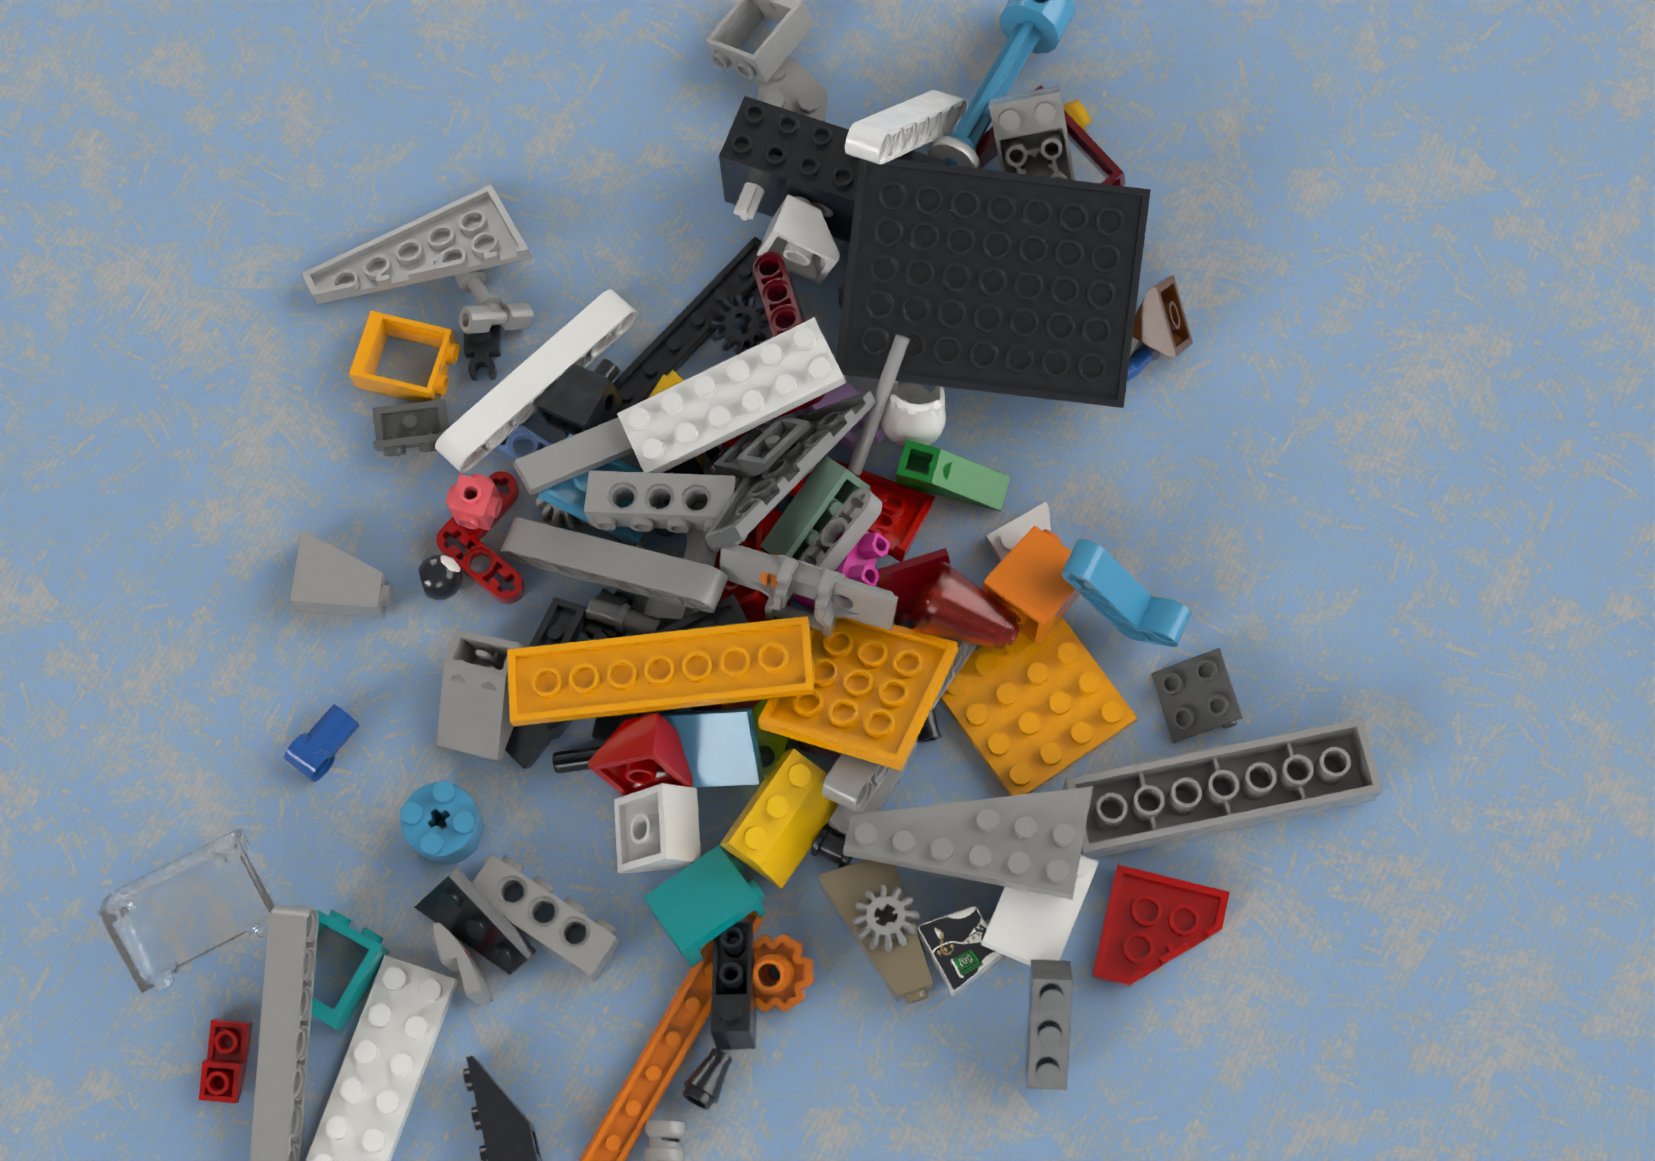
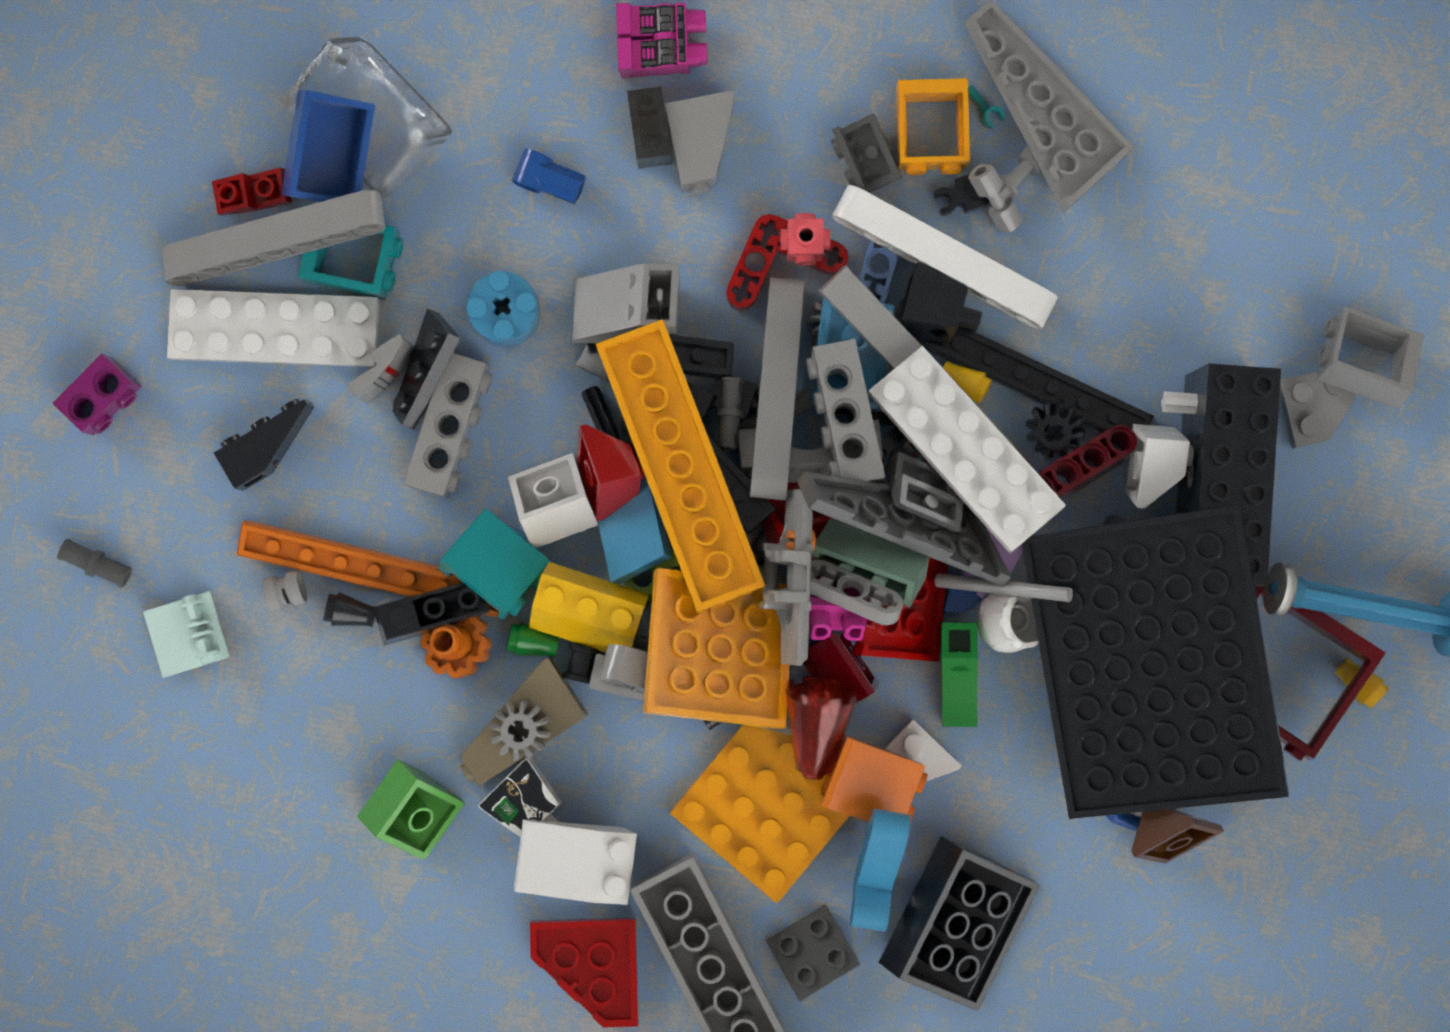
camera: 75 degrees right, 15 degrees up
(207, 954) = (327, 146): none -> blue piece
(223, 594) = (656, 40): none -> dark pink hips
(308, 626) = (649, 127): none -> clear smoke brick
(408, 308) = (985, 108): none -> teal hand
(440, 577) = (729, 230): black piece -> none
(796, 895) = (530, 642): none -> green cone
(879, 459) = (960, 600): none -> blue tile
(904, 126) = (1292, 536): white beam -> none
(938, 1070) = (410, 810): none -> bright green slope
(1002, 841) = (617, 819): light grey wing -> none
(1032, 133) = (1321, 662): light grey slope -> none
(1049, 1024) = (469, 898): brick -> none
(1202, 546) = (958, 924): none -> black slope

